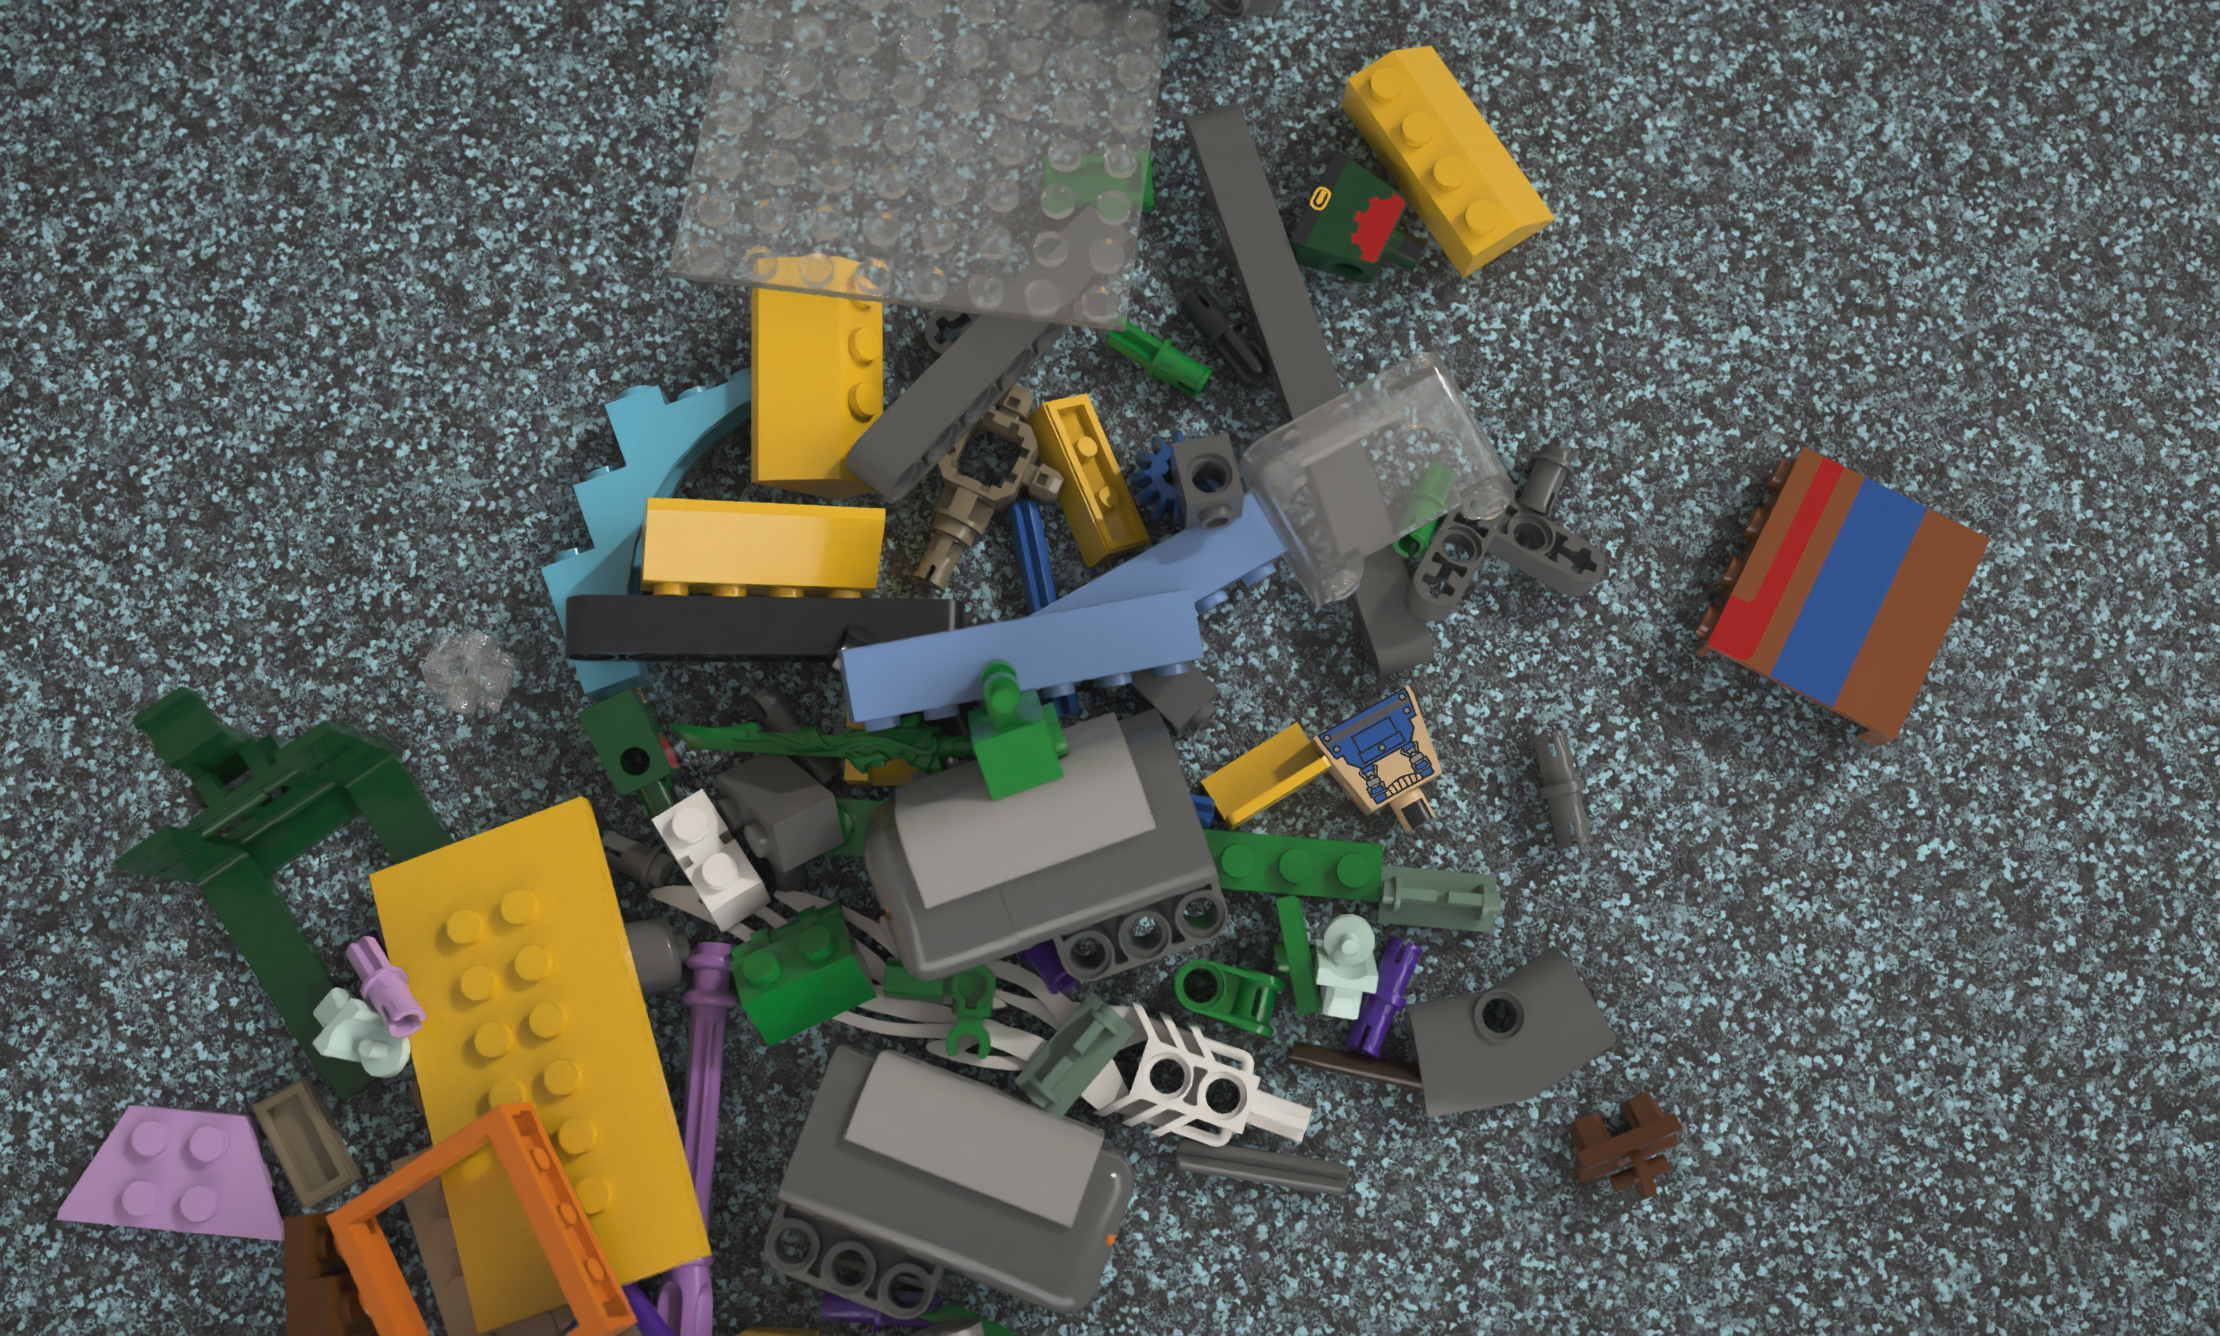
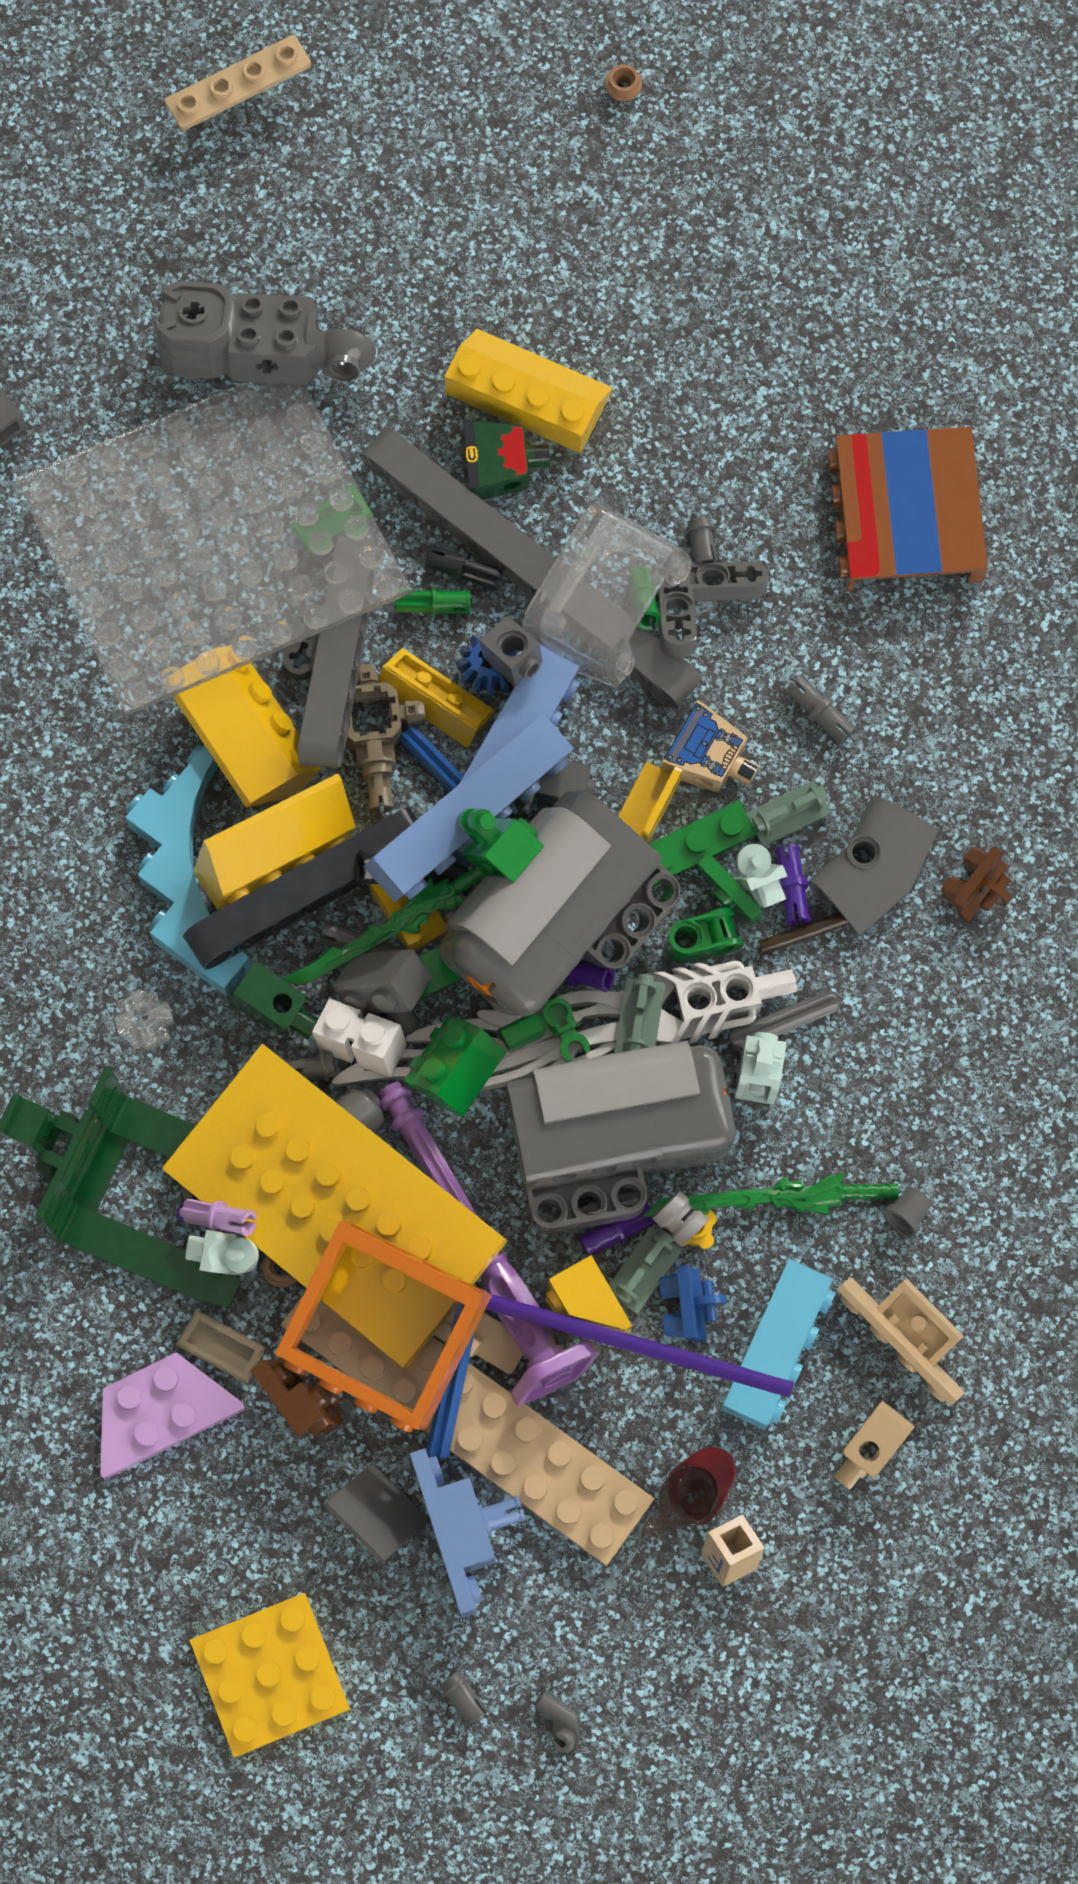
camera: 35 degrees left, 5 degrees down
(1188, 1220) = (760, 1068): none -> light aqua hinge

